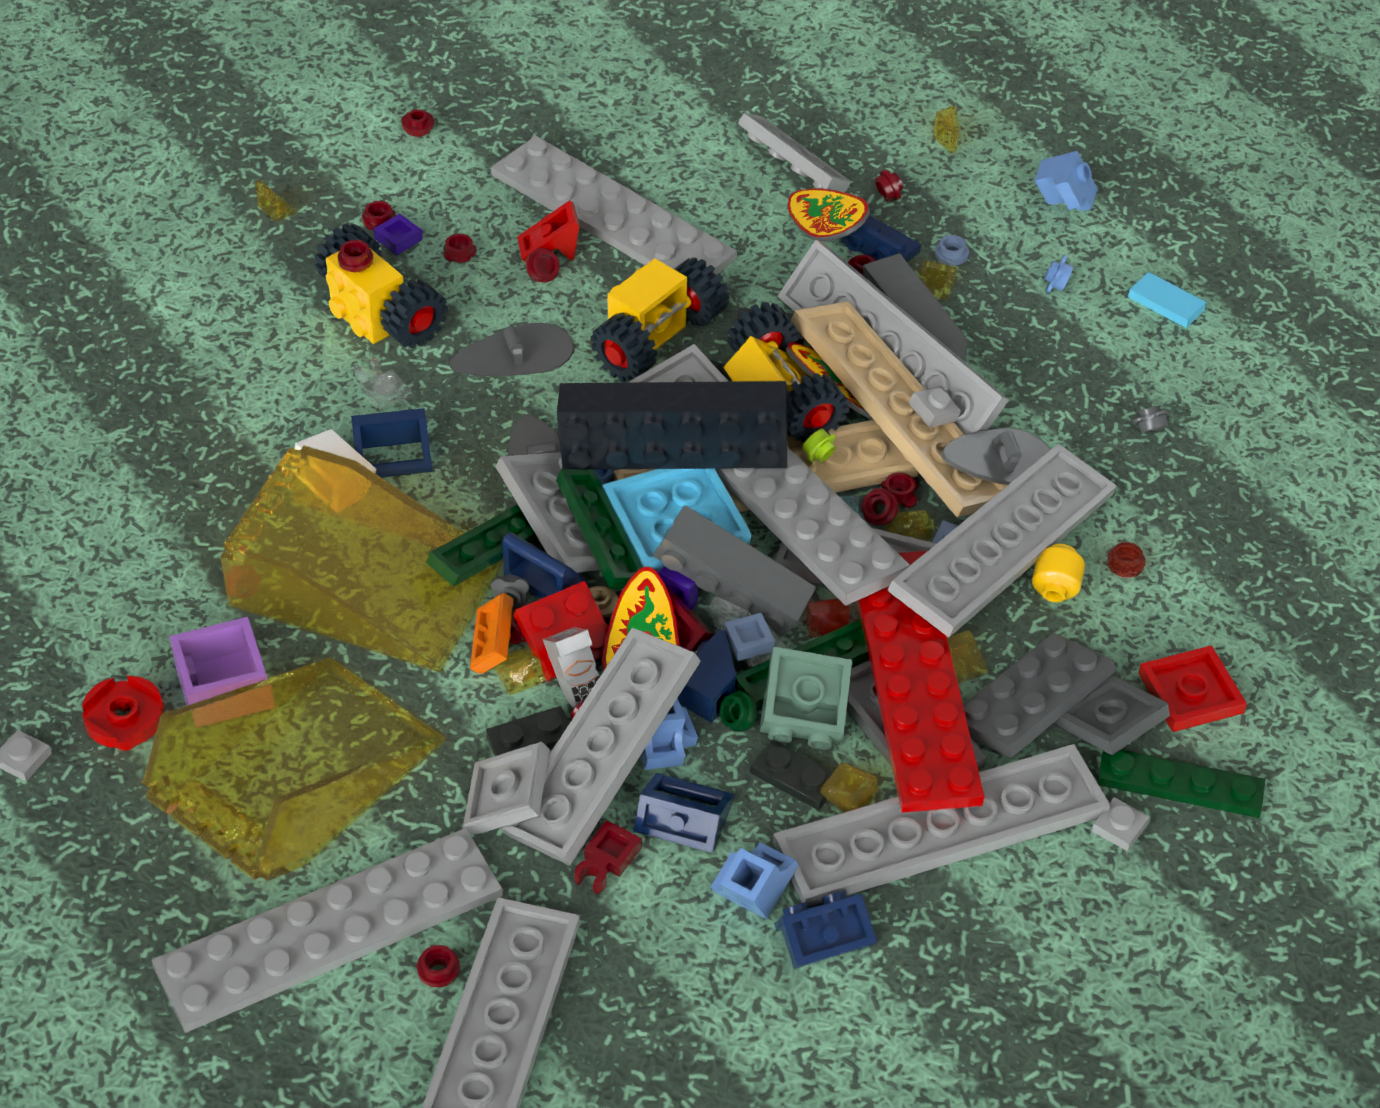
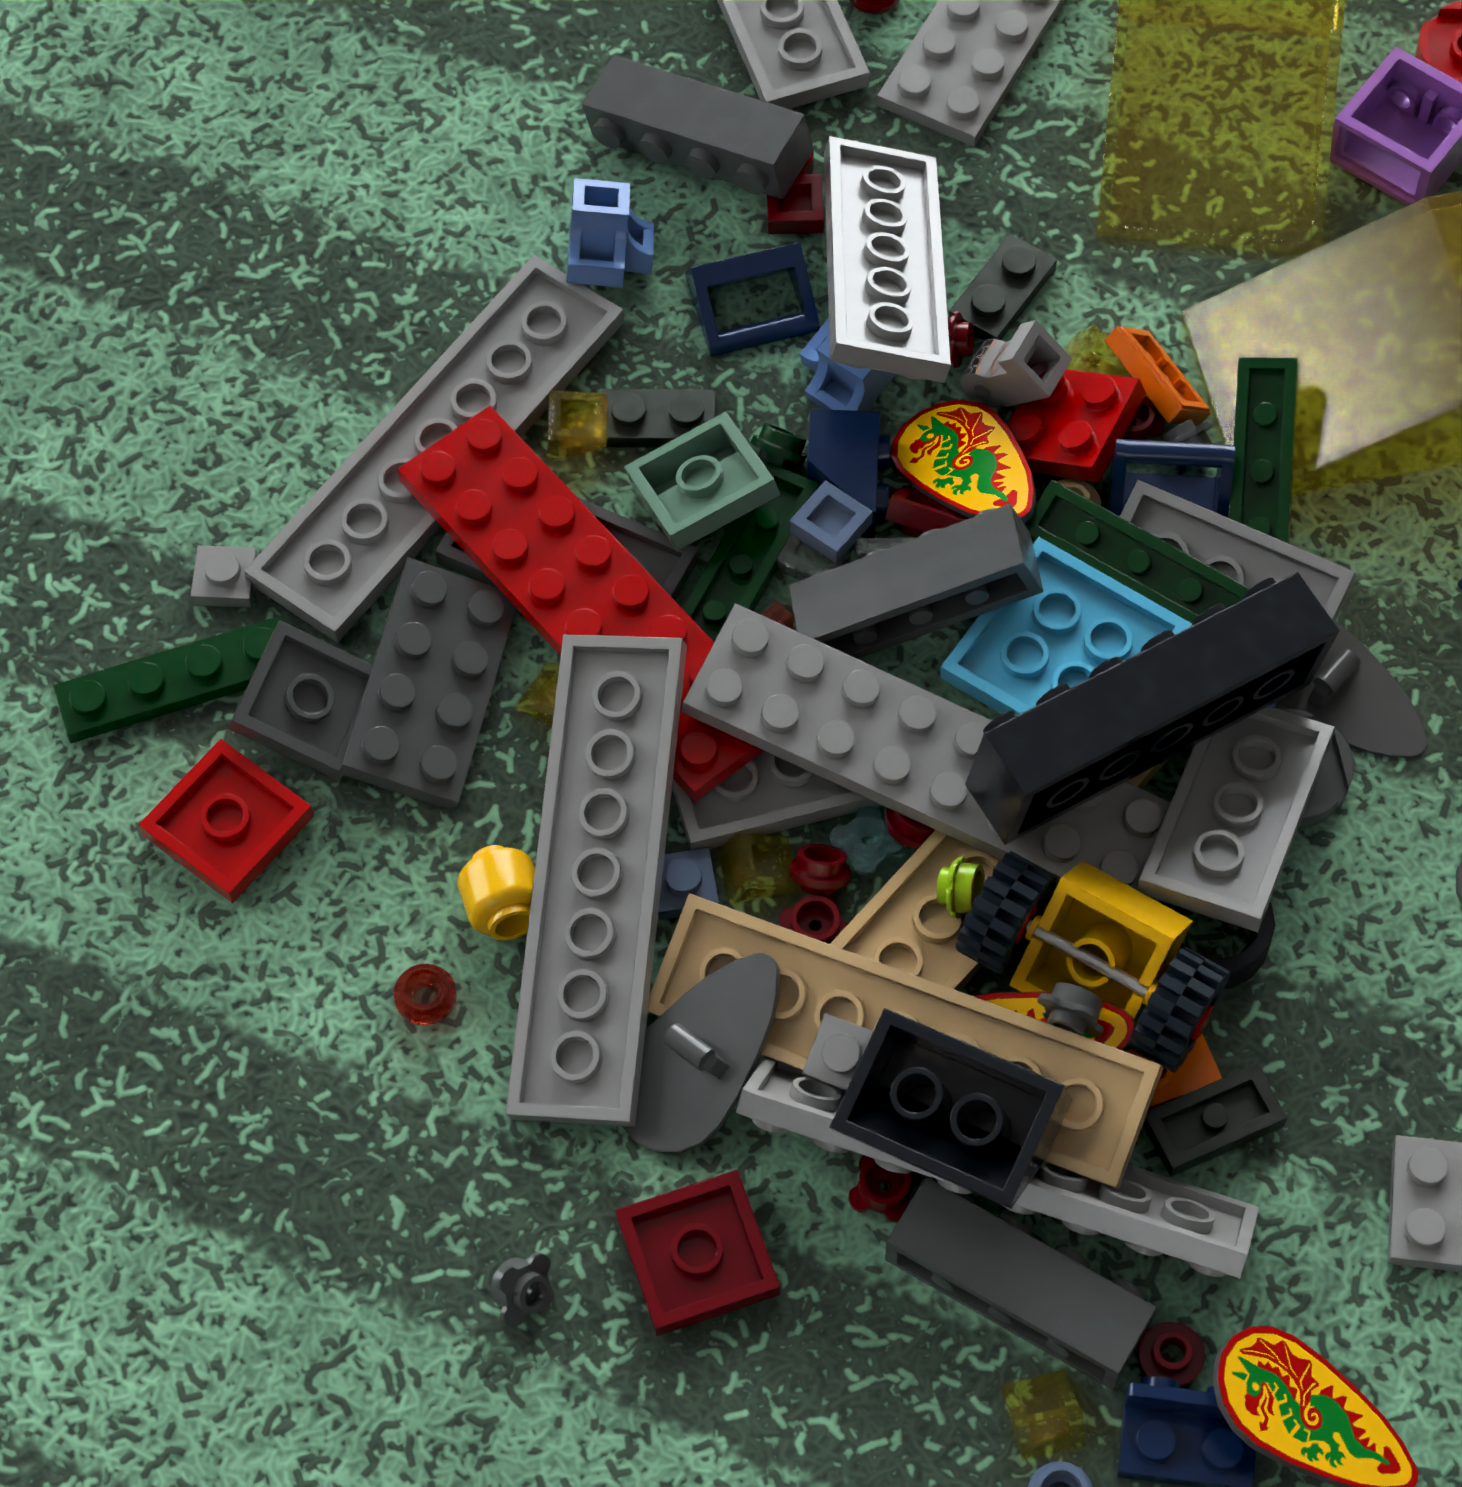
camera: 150 degrees right, 15 degrees up
(506, 788) = (963, 186): light grey tile -> none
(643, 911) = (698, 127): none -> dark grey brick
(653, 309) = (1397, 987): brick -> none
(817, 350) = (1072, 1009): none -> dark grey plate
(826, 930) = (493, 242): dark blue bracket -> none
(907, 337) = (951, 1109): none -> black slope
(1056, 396) = (697, 1252): none -> dark red plate

